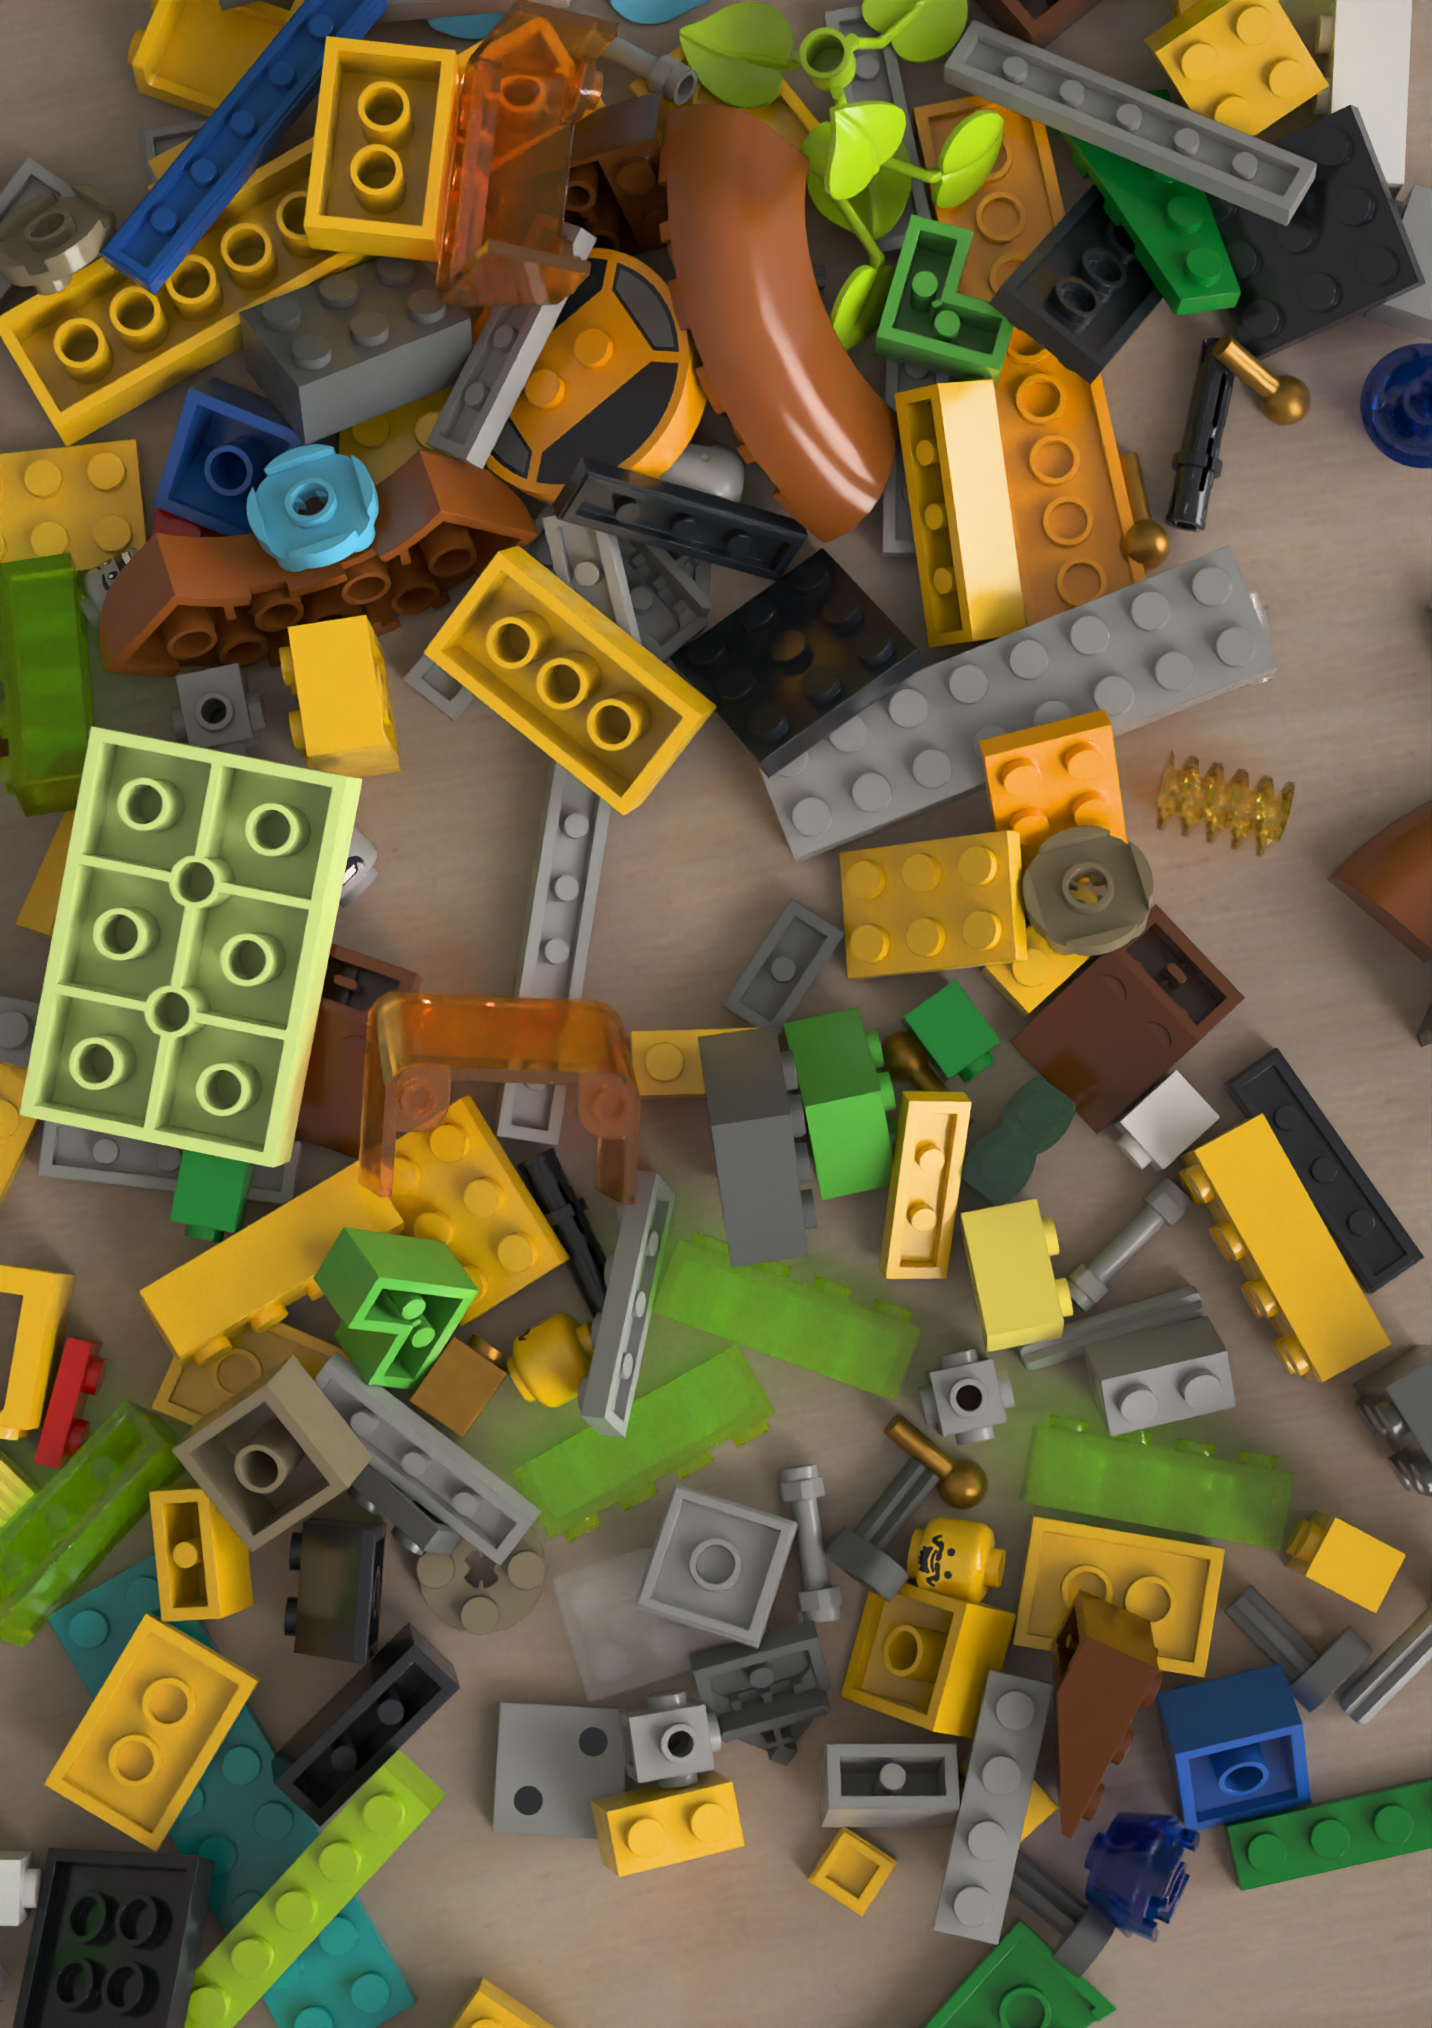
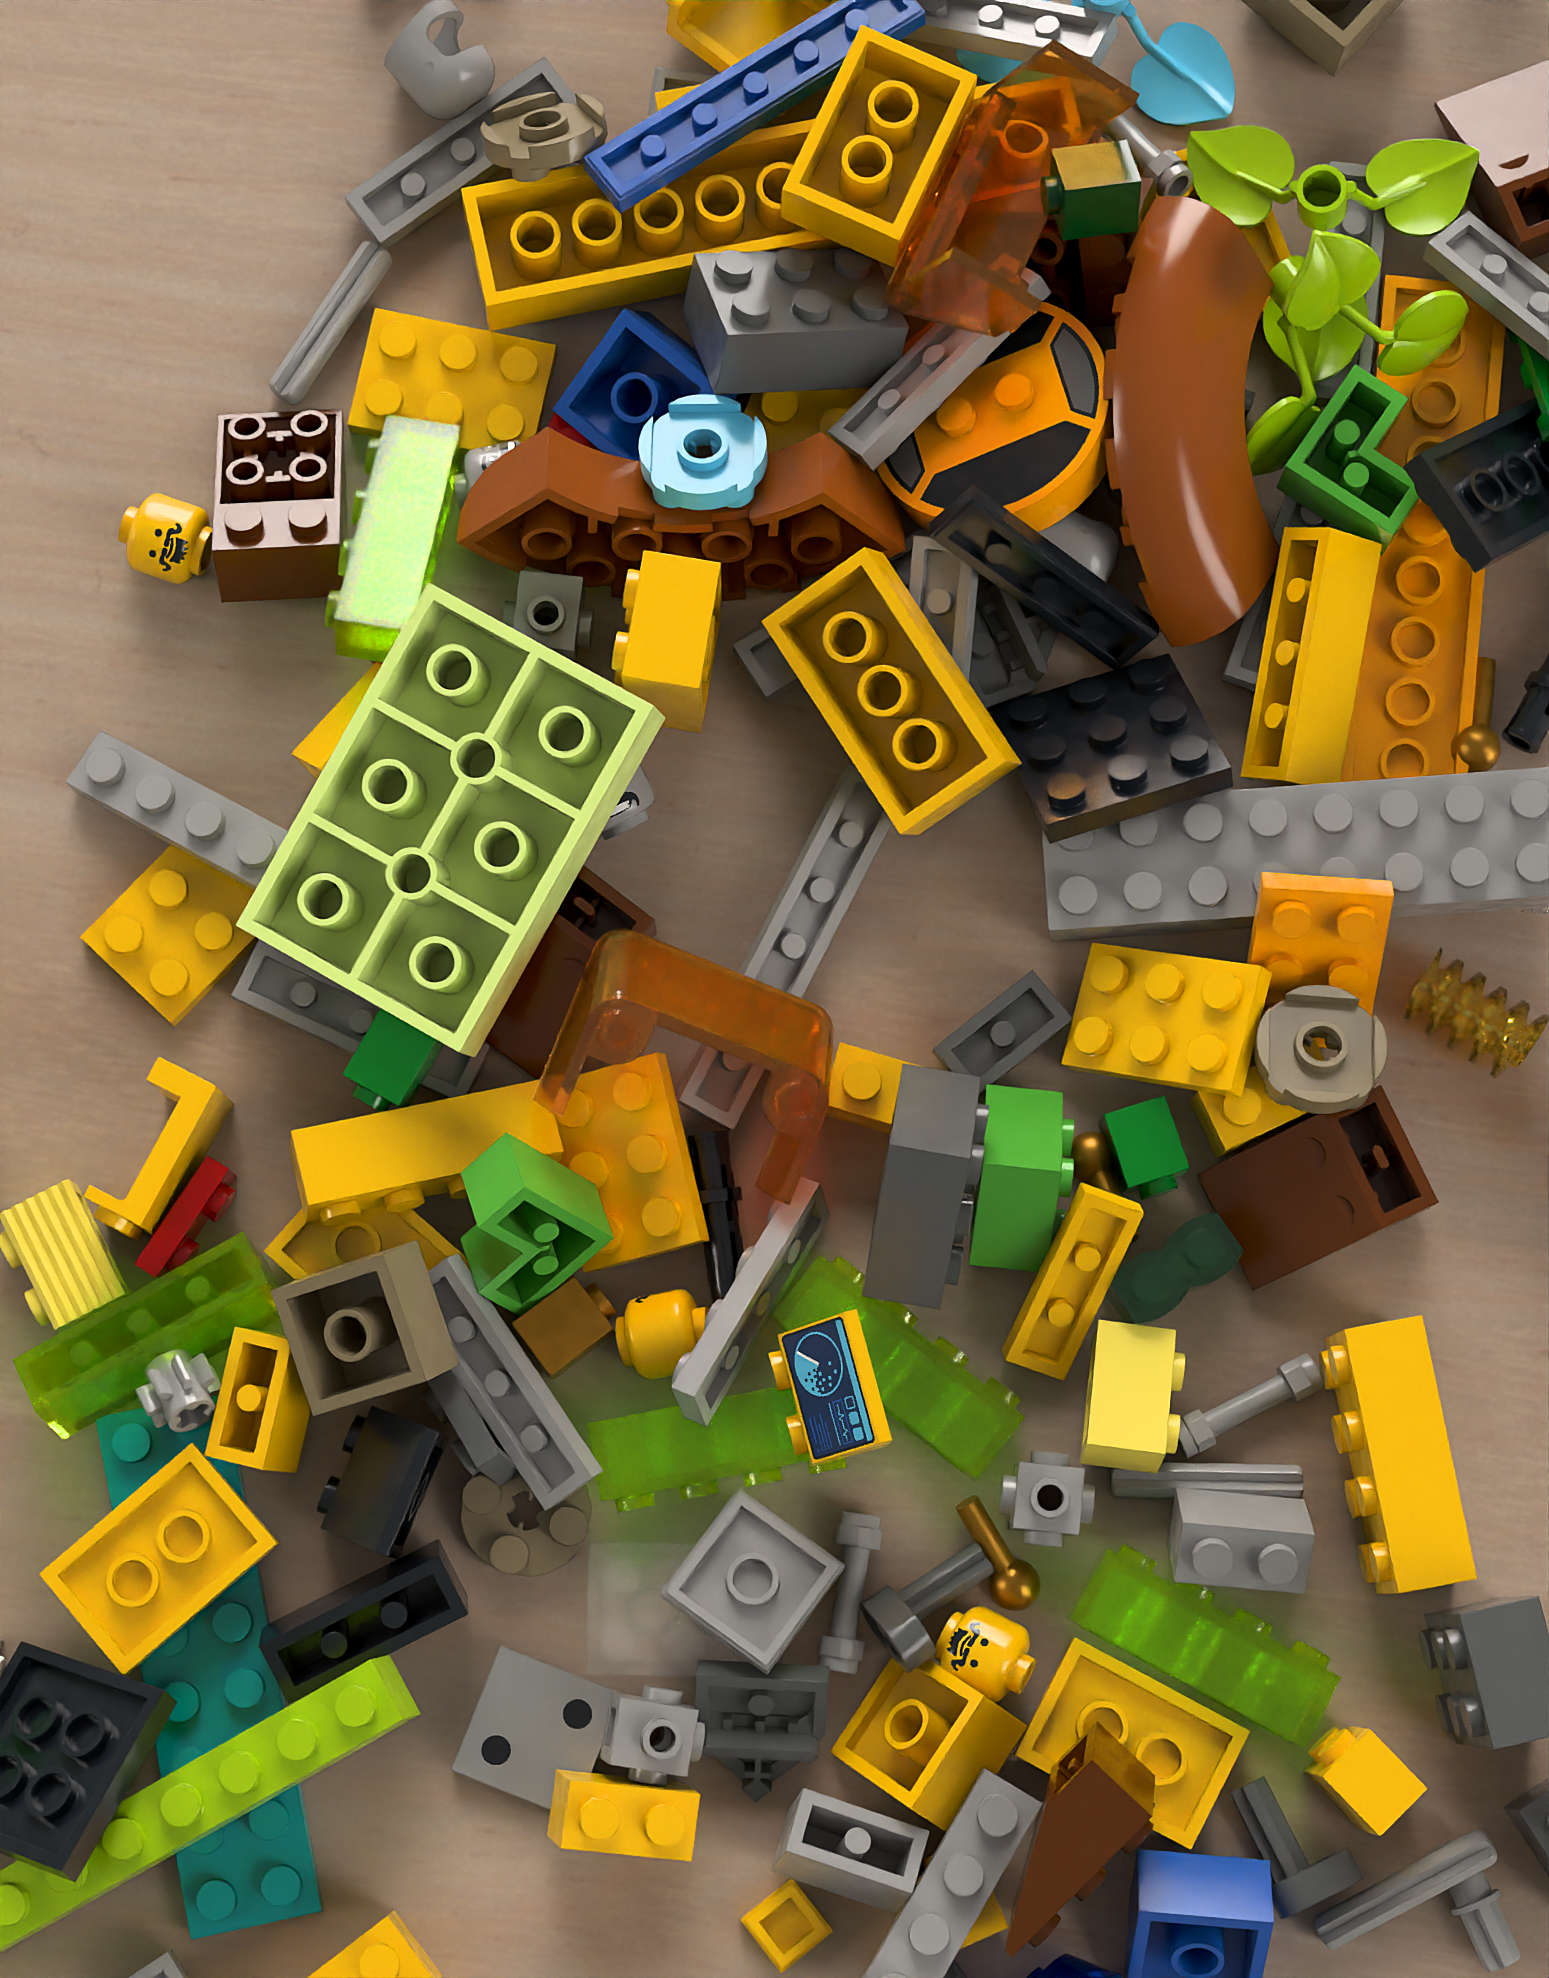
camera: 15 degrees right, 5 degrees down
(117, 1568) = (179, 1390): none -> light grey gear
(604, 129) = (1092, 190): none -> dark green brick
(730, 1367) = (831, 1389): none -> slope
(1164, 1123) = (1321, 1300): white brick -> none
(1342, 1193) = (1476, 1433): black tile -> none

